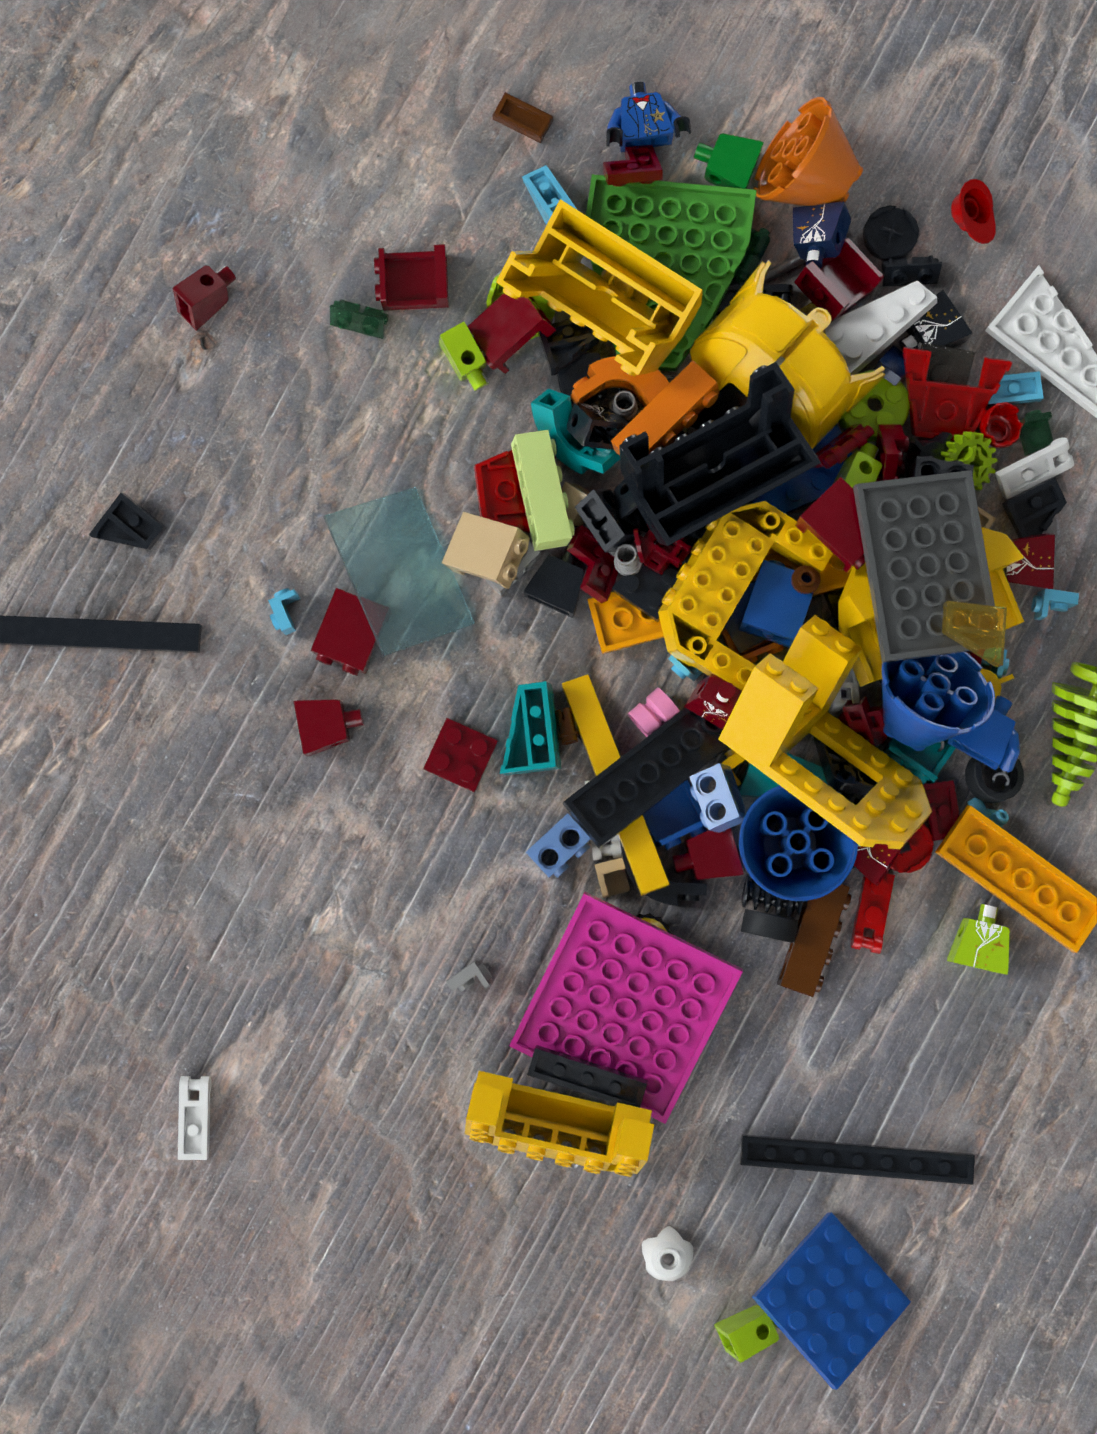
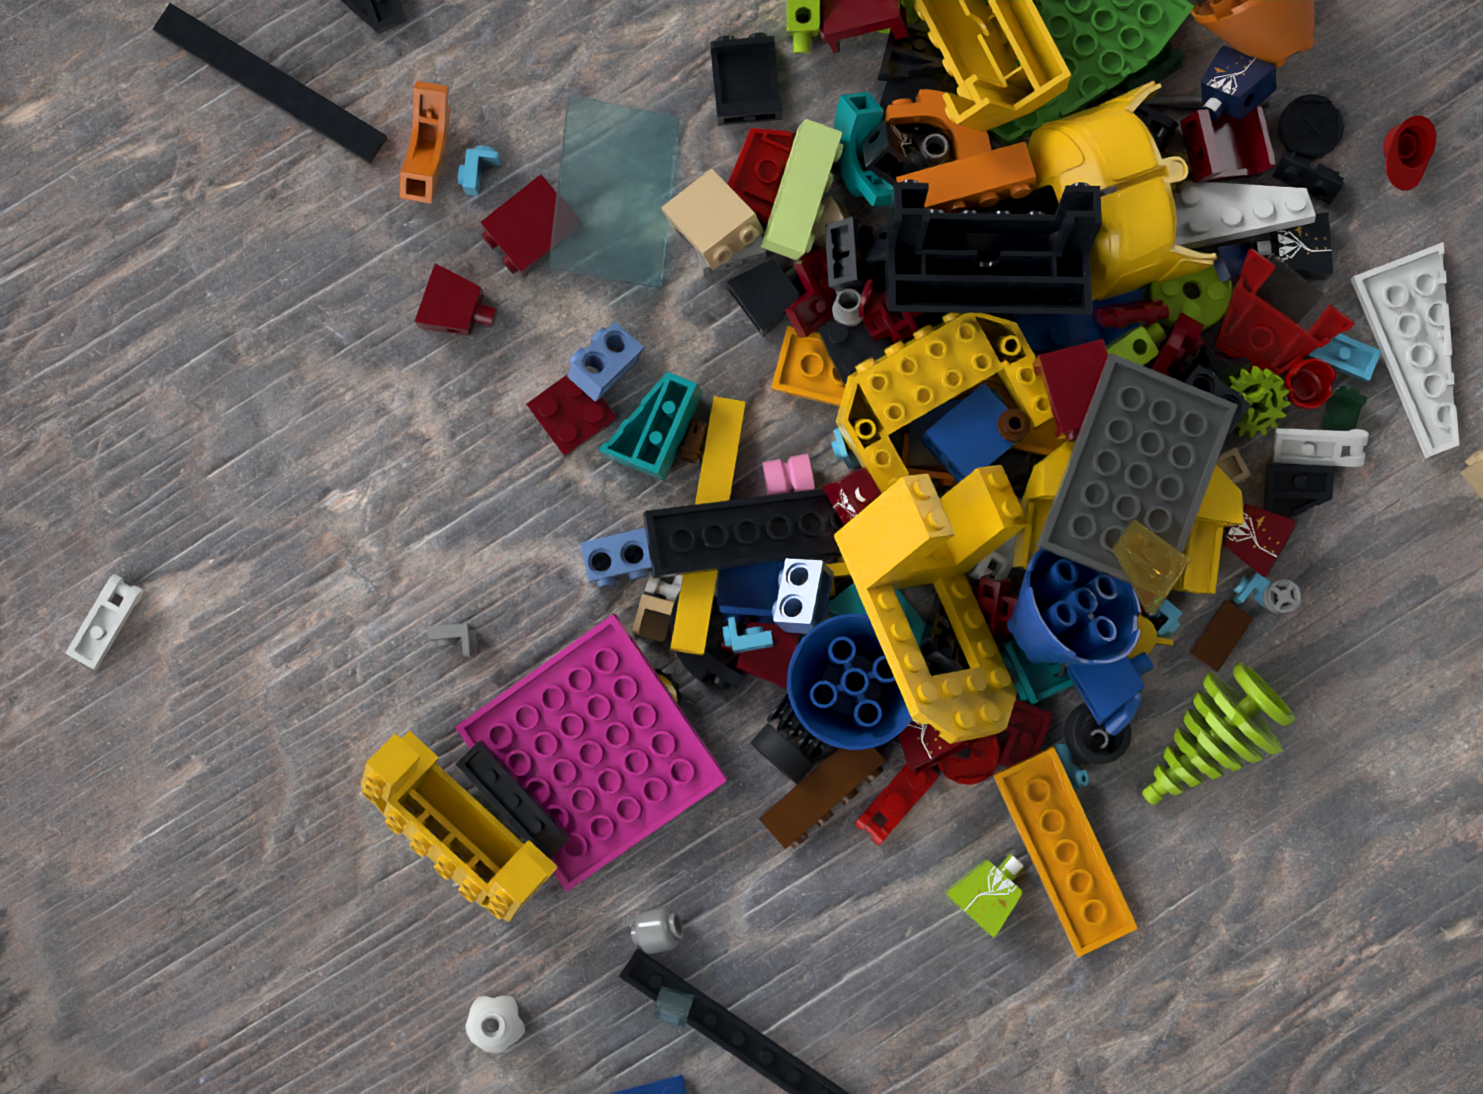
camera: 25 degrees right, 0 degrees up
(235, 613) = (427, 143): none -> orange arch
(449, 430) = (745, 79): none -> black panel
(467, 703) = (608, 363): none -> medium blue brick
(699, 852) = (753, 638): none -> medium azure bracket
(750, 1113) = (657, 930): none -> light grey head
(796, 1165) = (672, 1007): none -> clear light blue brick
(1042, 650) = (1220, 636): none -> reddish brown tile
(1079, 592) = (1286, 592): none -> light grey wheel

